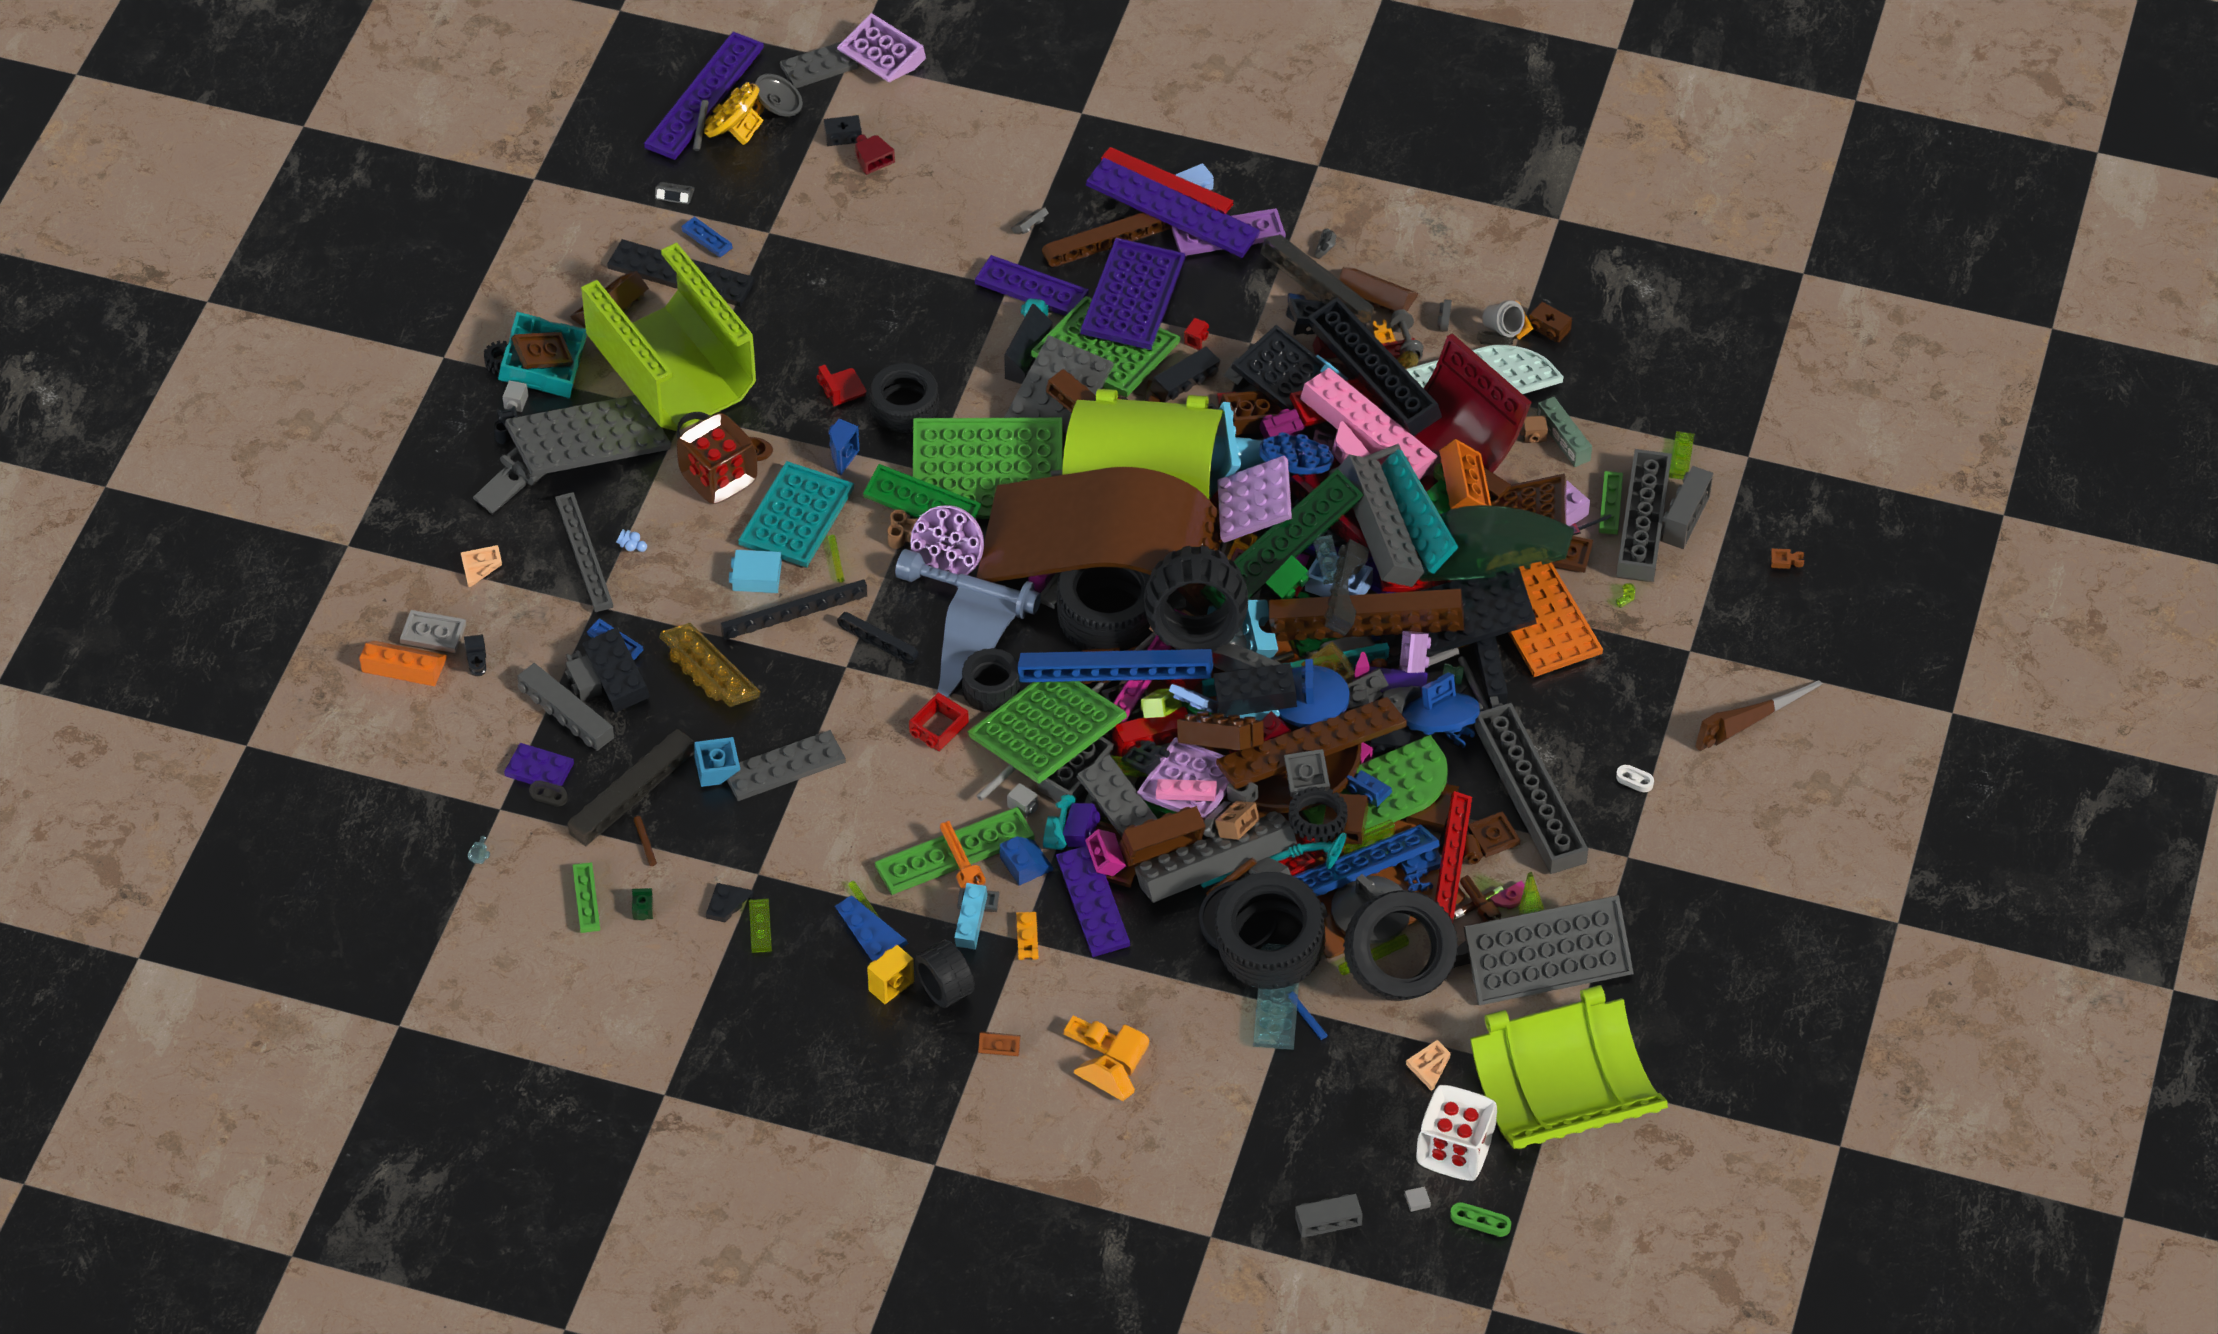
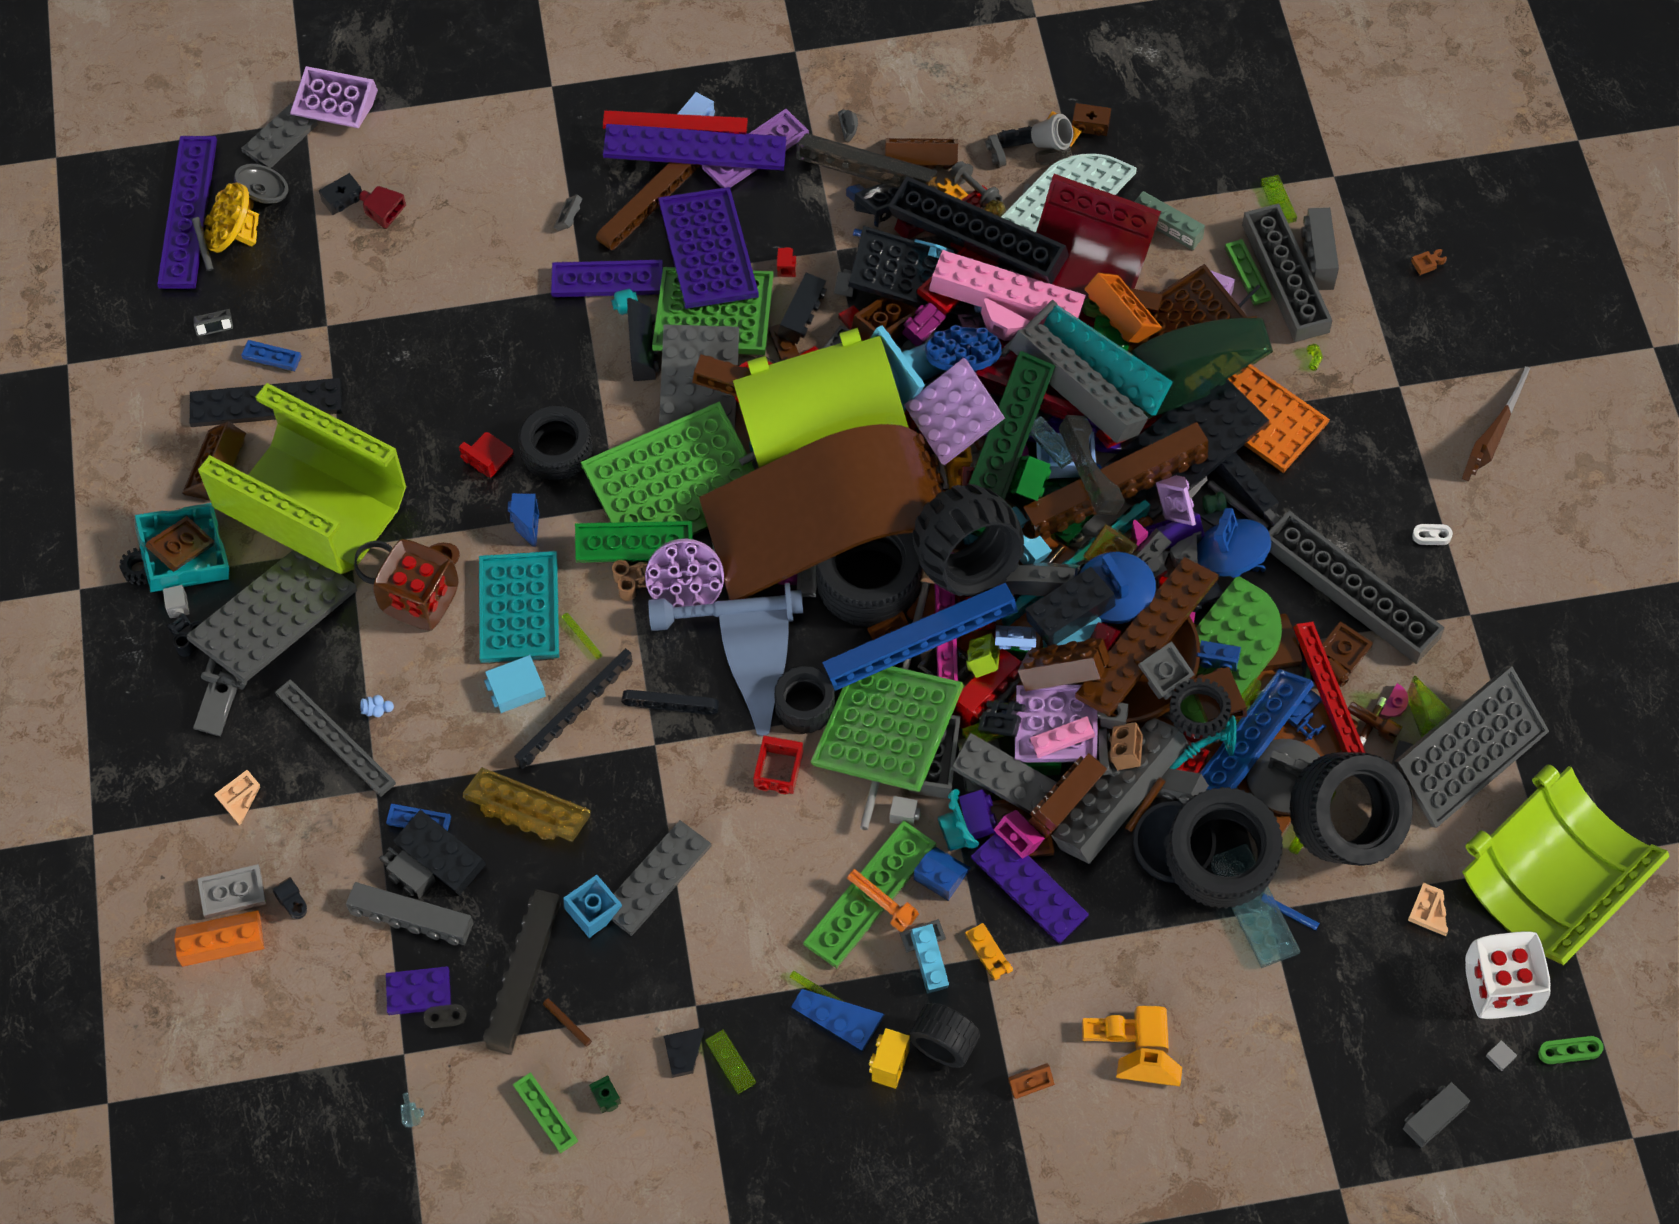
camera: 25 degrees left, 10 degrees up
(1466, 310) = (1015, 137): none -> black hinge

